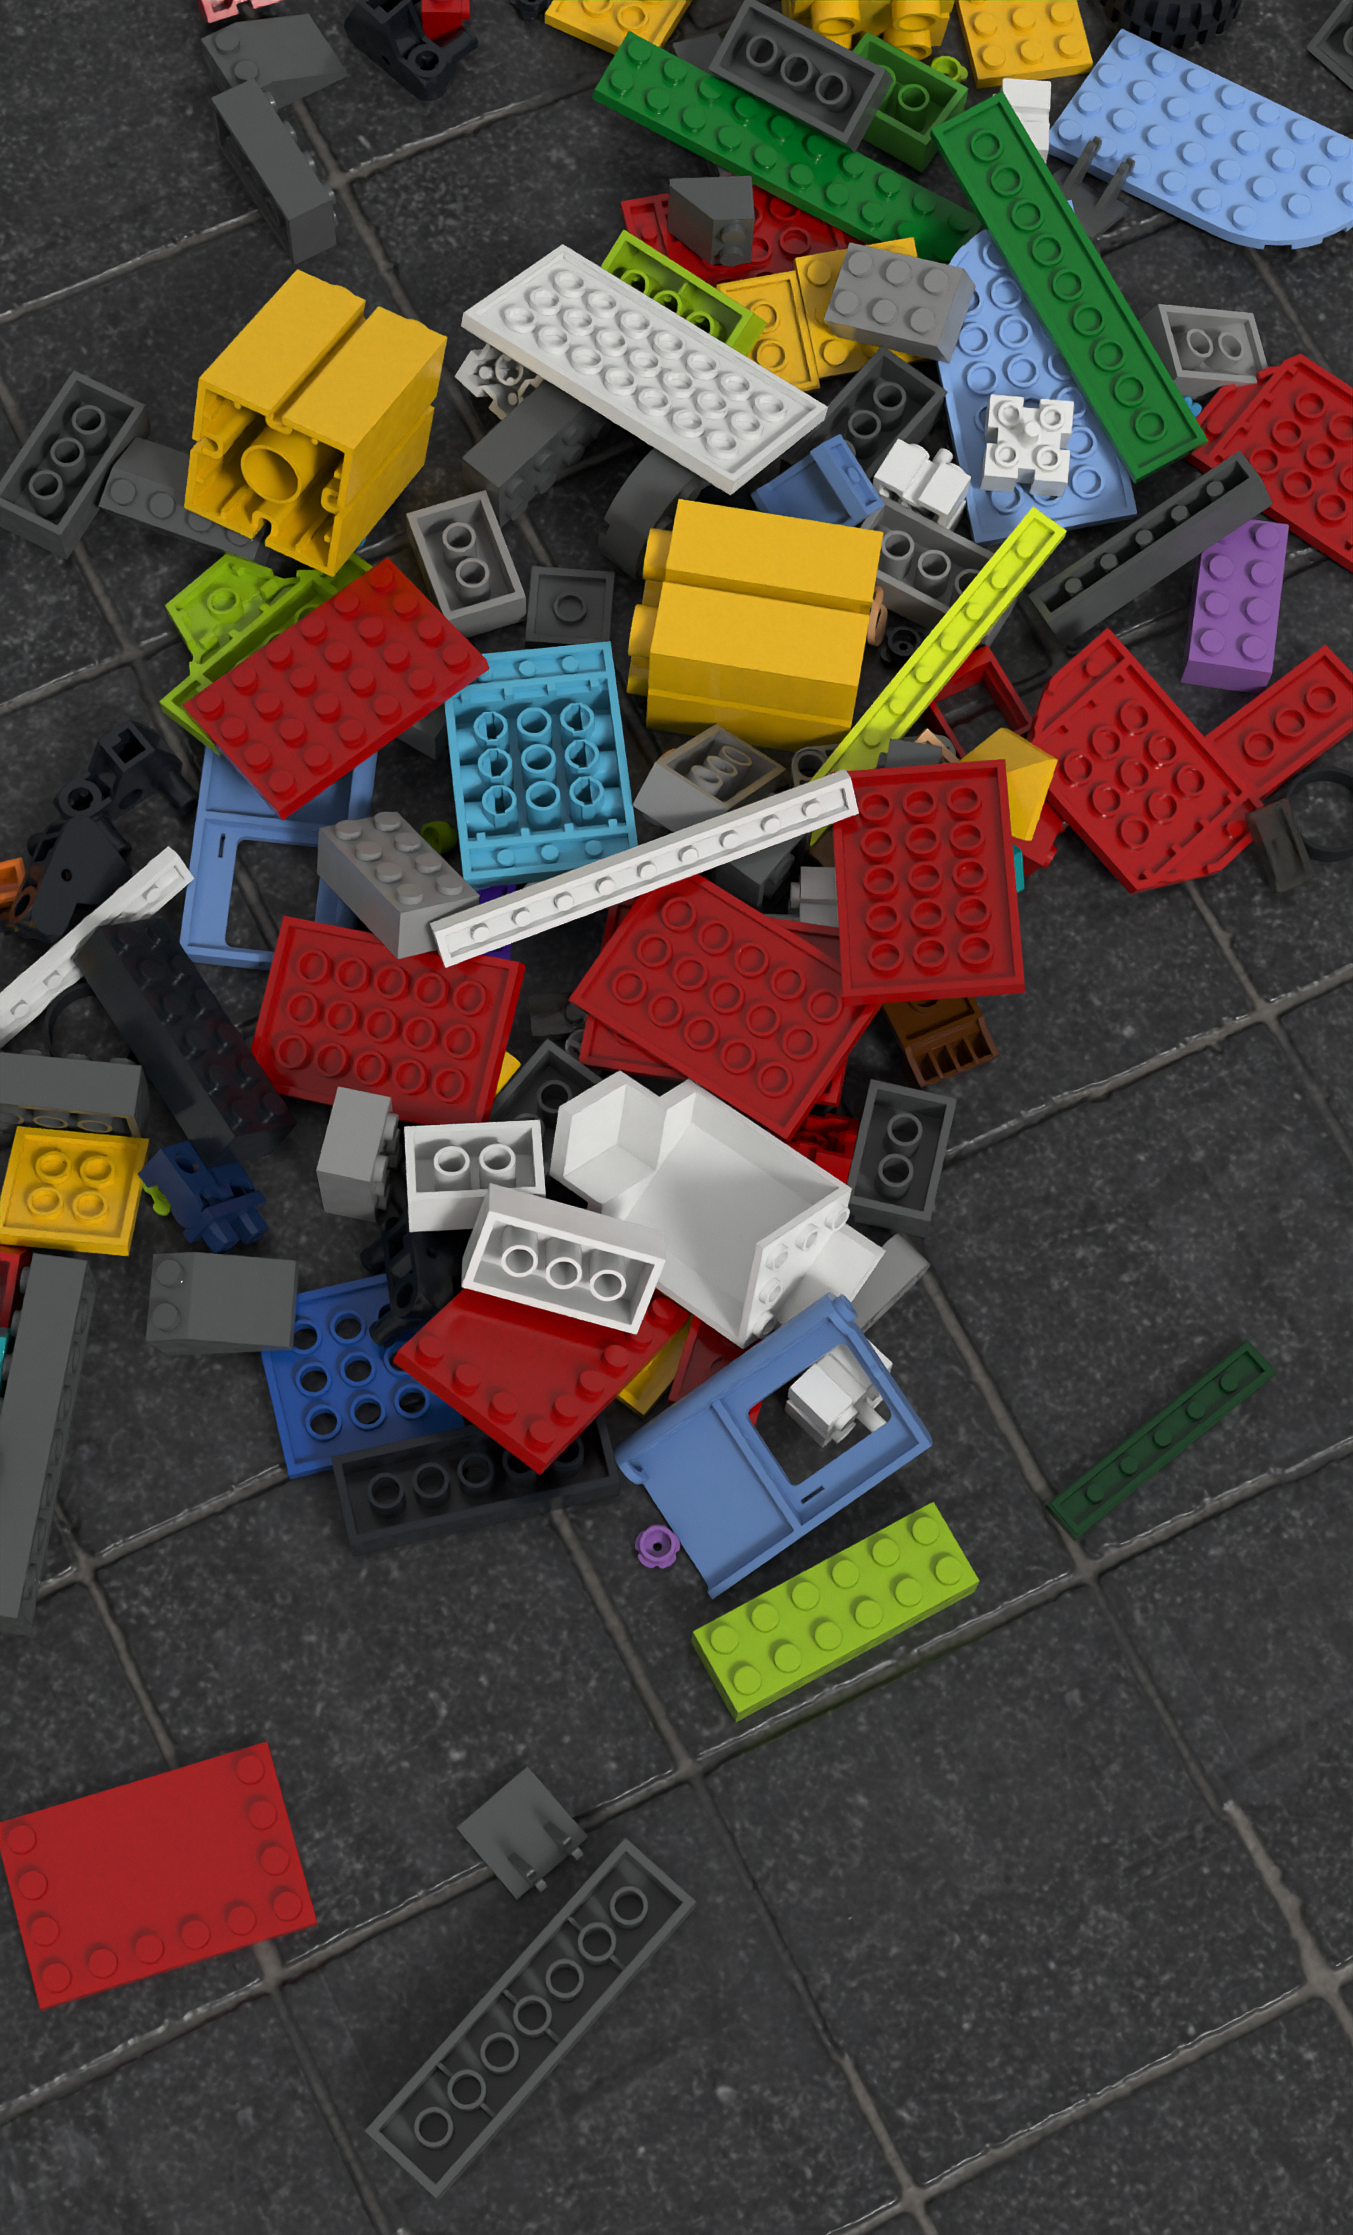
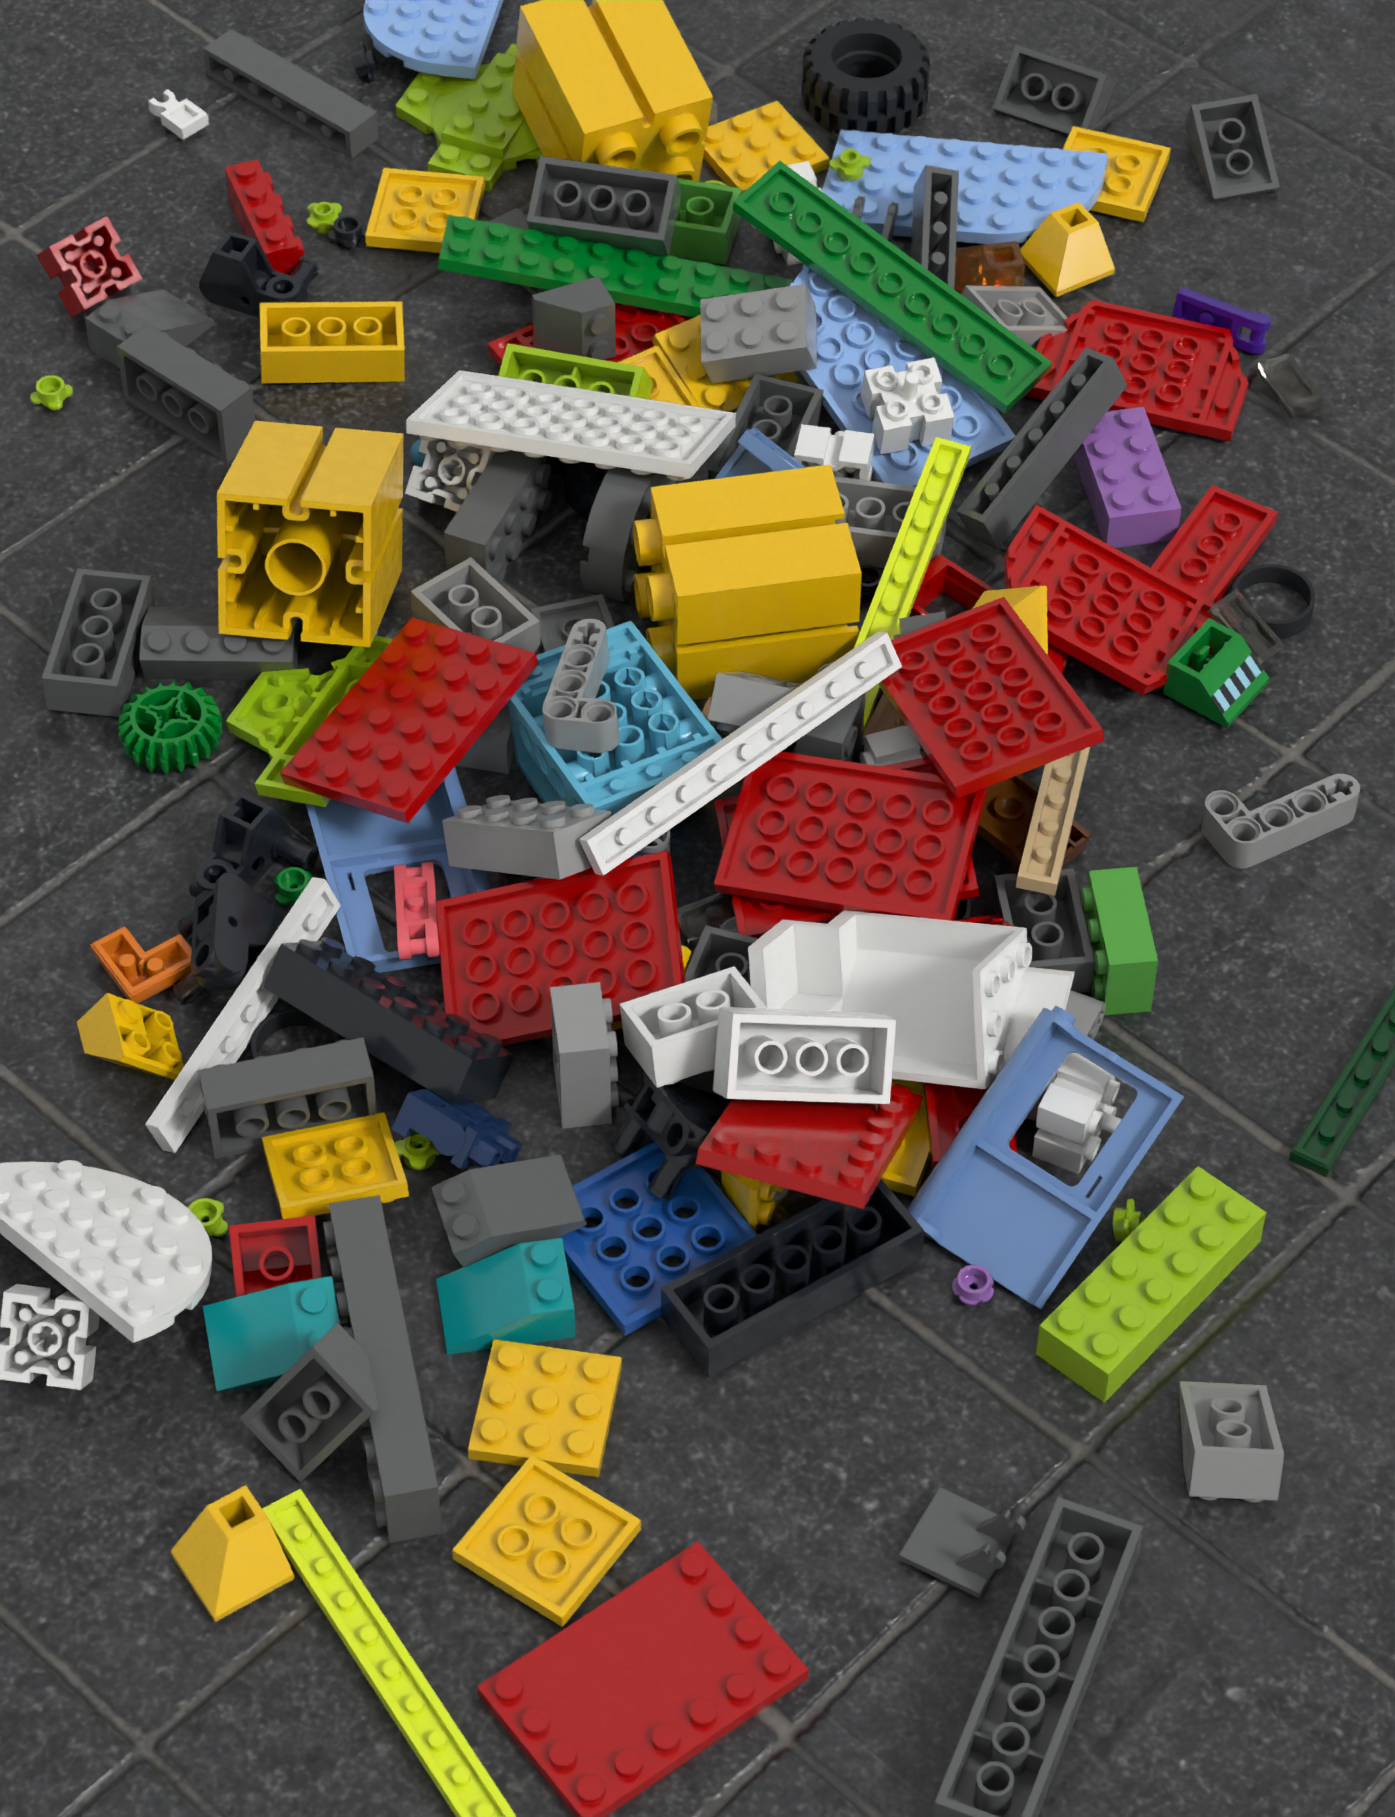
camera: 15 degrees left, 20 degrees down
(111, 572) = (170, 727): none -> green gear
(122, 1687) = (547, 1540): none -> yellow plate
(141, 107) = (51, 392): none -> lime plate
(158, 820) = (290, 884): none -> green plate
(180, 1534) = (546, 1407): none -> yellow plate
(188, 1400) = (508, 1297): none -> teal slope
(270, 899) = (416, 911): none -> coral plate
(454, 148) = (332, 342): none -> yellow brick
(542, 678) = (570, 709): none -> light grey beam
(836, 1817) = (1229, 1441): none -> light grey slope
(842, 1531) = (1126, 1220): none -> lime plate
(958, 1036) = (1052, 823): none -> tan plate
(969, 1197) = (1120, 940): none -> bright green brick
(1106, 95) = (850, 165): none -> lime plate
(1156, 218) = (936, 222): none -> dark grey brick
(1196, 272) = (989, 266): none -> clear orange slope
(1216, 1092) = (1259, 834): none -> light grey beam
(1223, 902) = (1219, 683): none -> green slope
(1300, 279) = (1068, 250): none -> yellow slope

